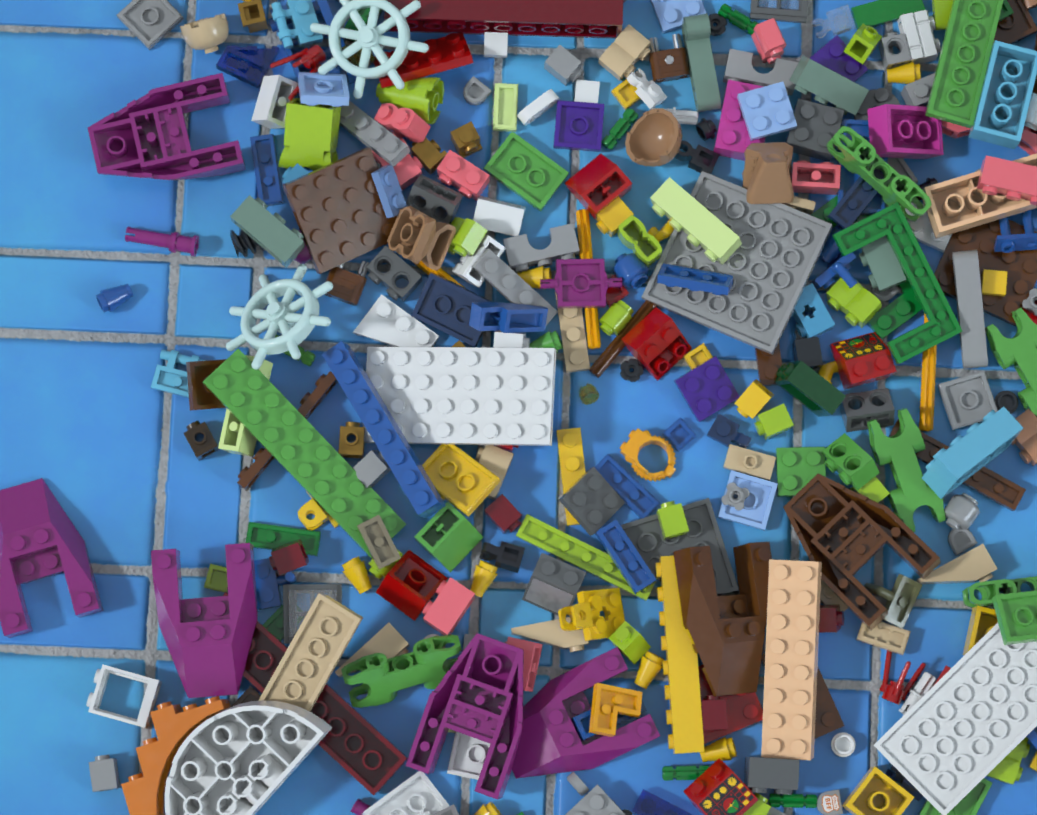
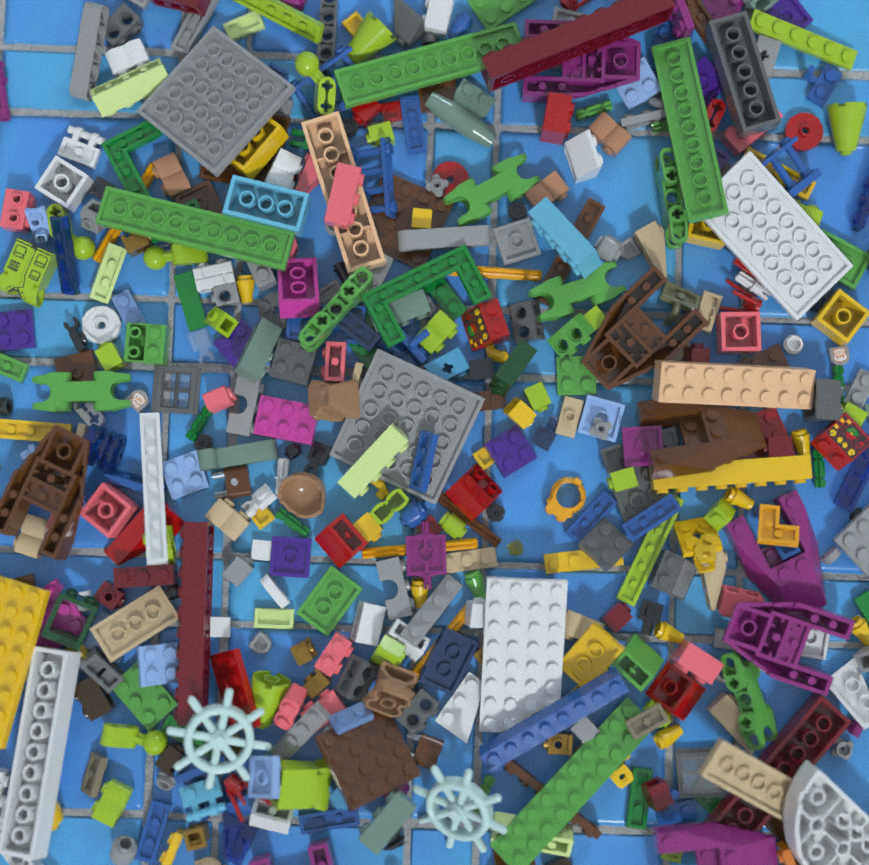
camera: 90 degrees left, 5 degrees up
(331, 794) = (846, 753): none -> light grey plate
(507, 317) = (457, 616): blue slope -> none
(679, 434) = (547, 473): blue tile -> none
(723, 542) = (638, 443): none -> magenta plate
(767, 111) = (281, 401): light blue plate -> none
(856, 671) = (738, 333): none -> coral brick

